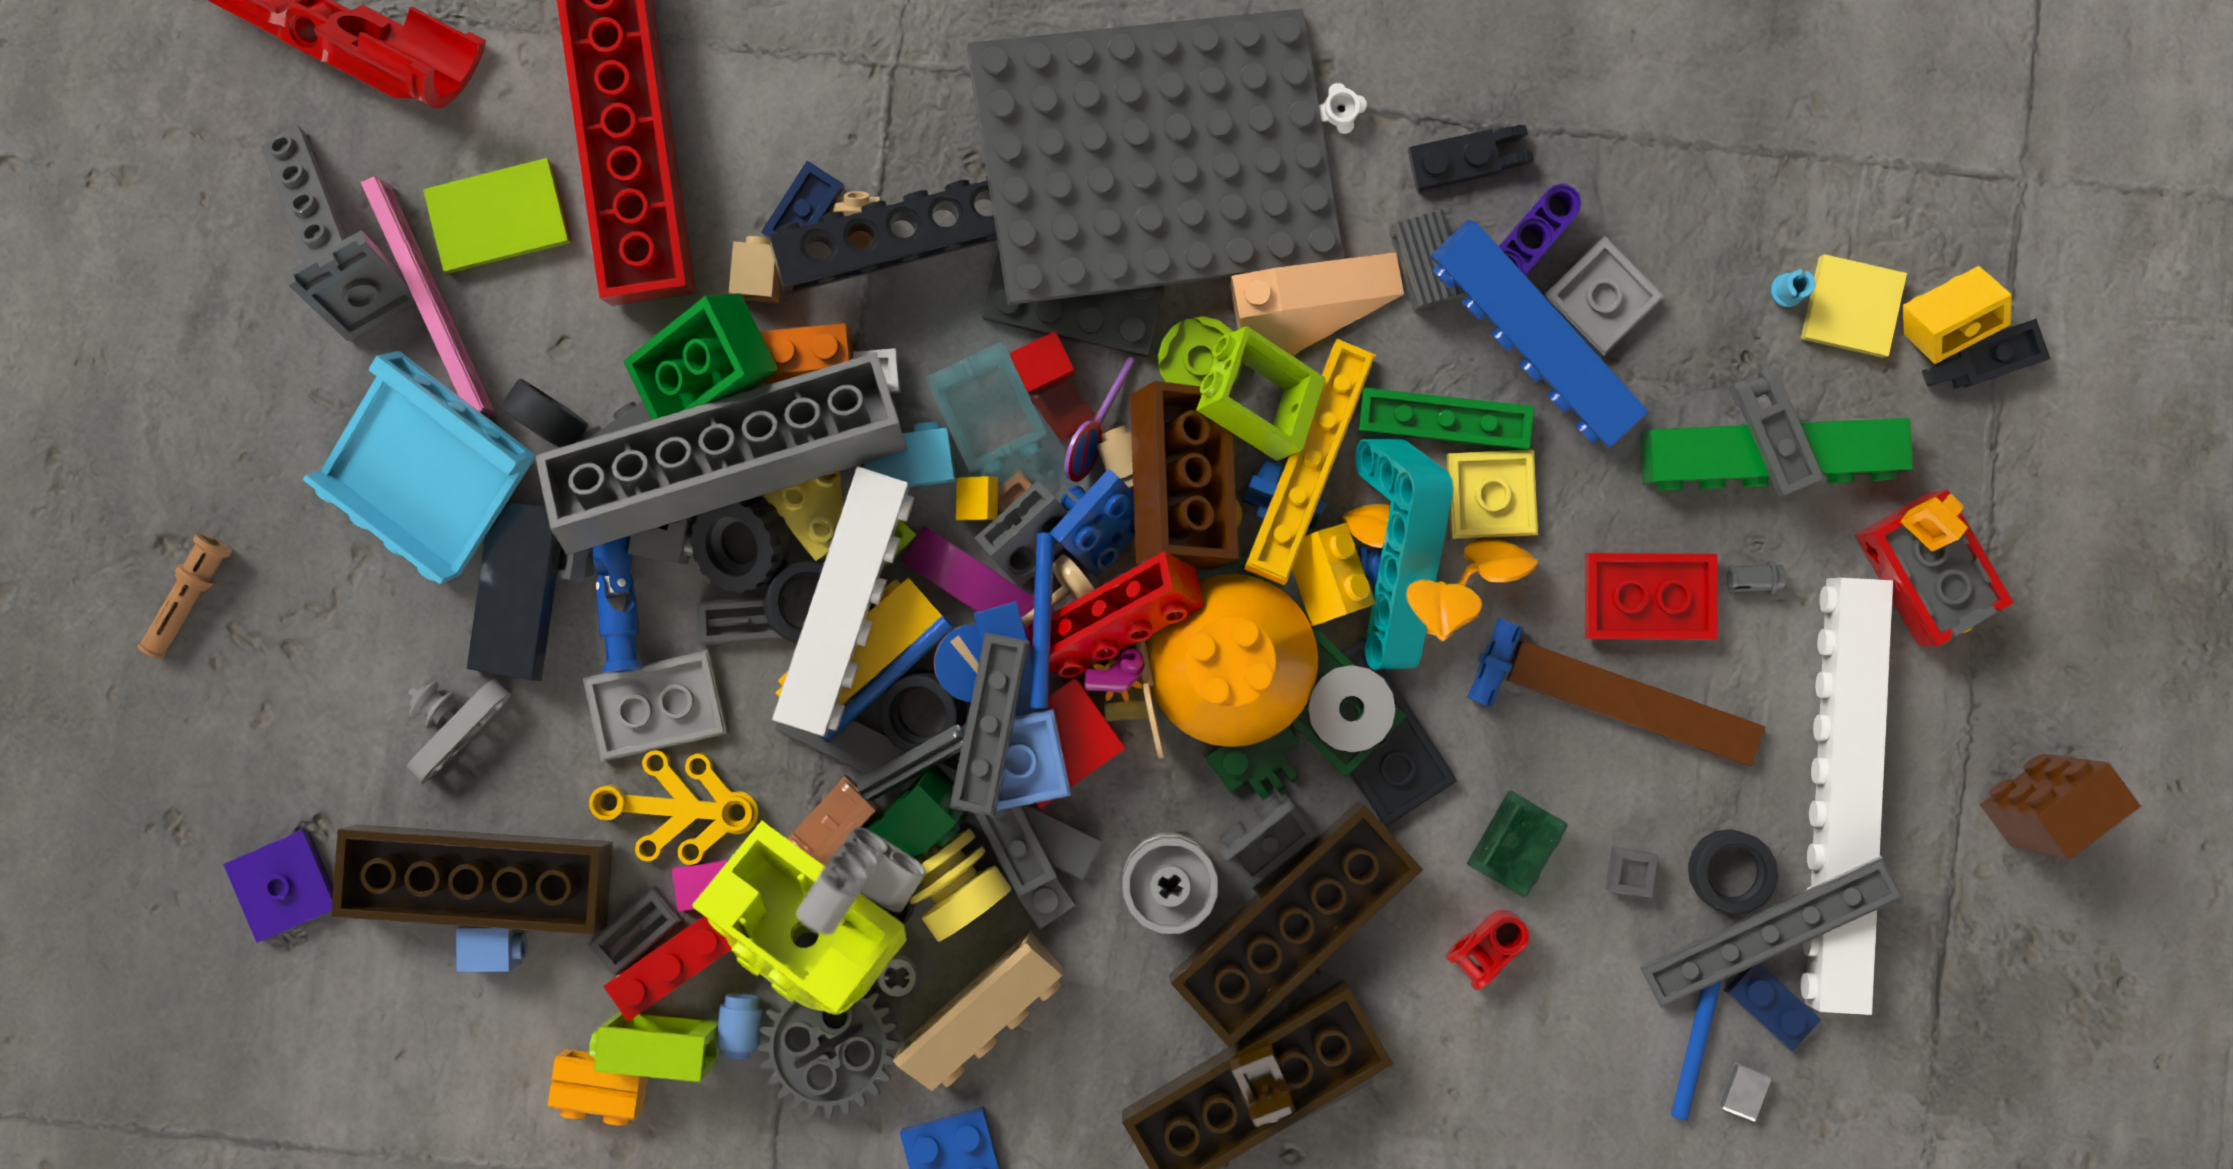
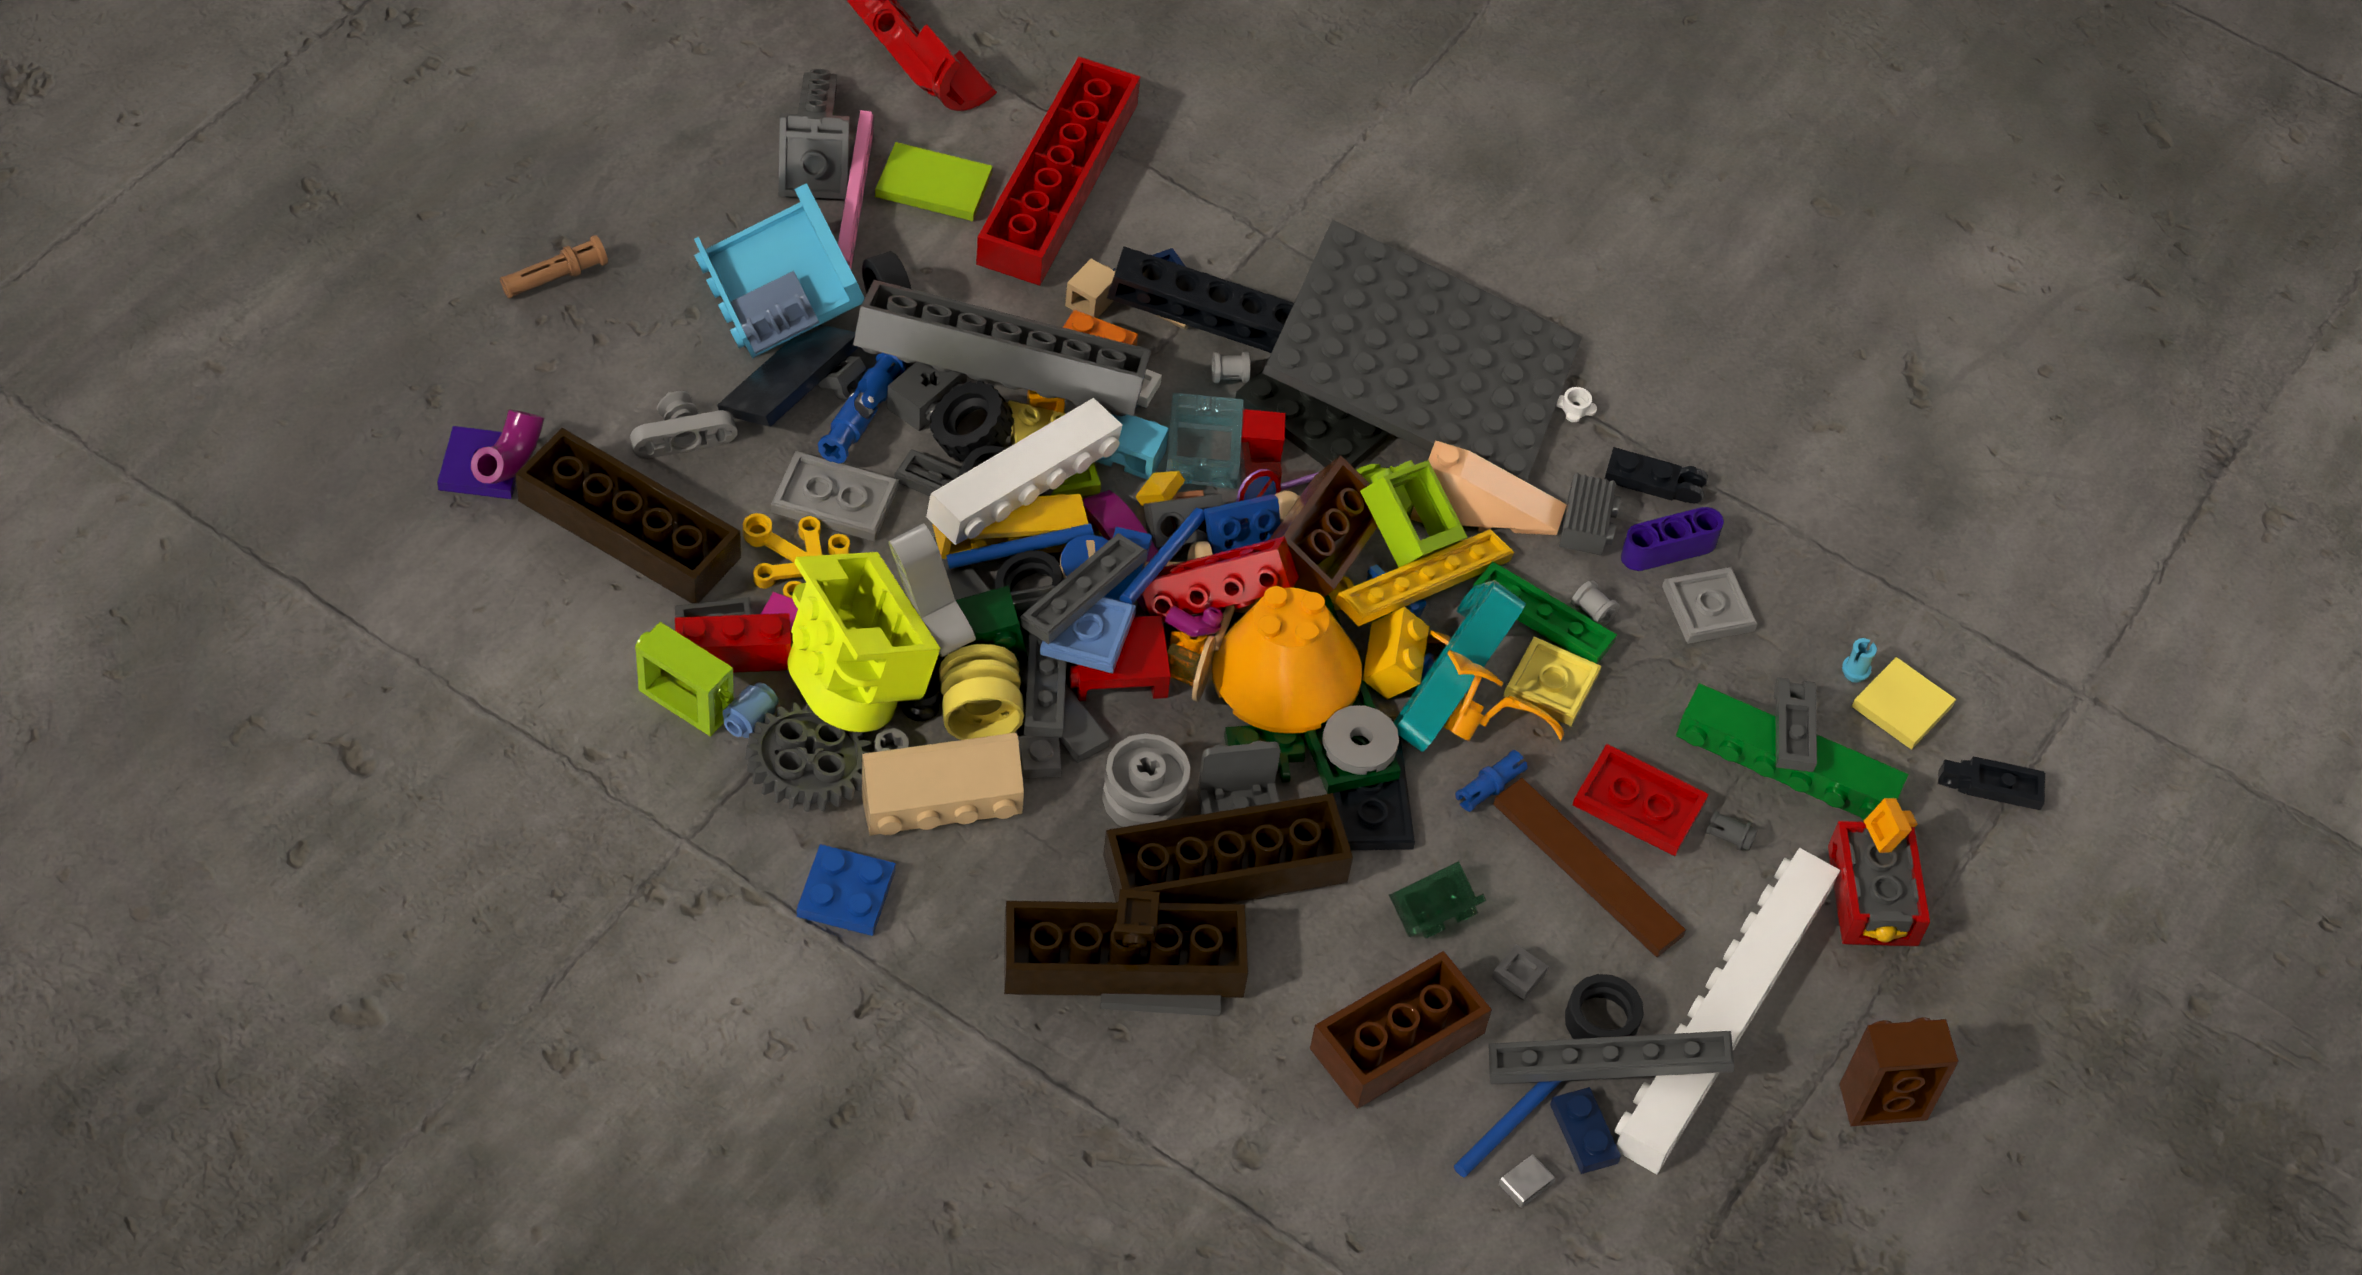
camera: 25 degrees right, 35 degrees down
(304, 876) = (510, 451): none -> magenta cylinder
(450, 528) = (774, 312): none -> sand blue hinge
(489, 949) = (603, 567): medium blue brick -> none
(582, 1091) = (615, 692): light orange brick -> none
(701, 357) = (1033, 289): green brick -> none
(959, 288) = (1230, 367): none -> light grey bush
(1487, 950) = (1370, 960): red piece -> none
(1491, 375) = (1595, 603): none -> light grey bush
(1538, 333) = (1644, 582): blue brick -> none
(1558, 1019) = (1400, 1029): none -> reddish brown brick
(1957, 314) = (1981, 734): yellow brick -> none

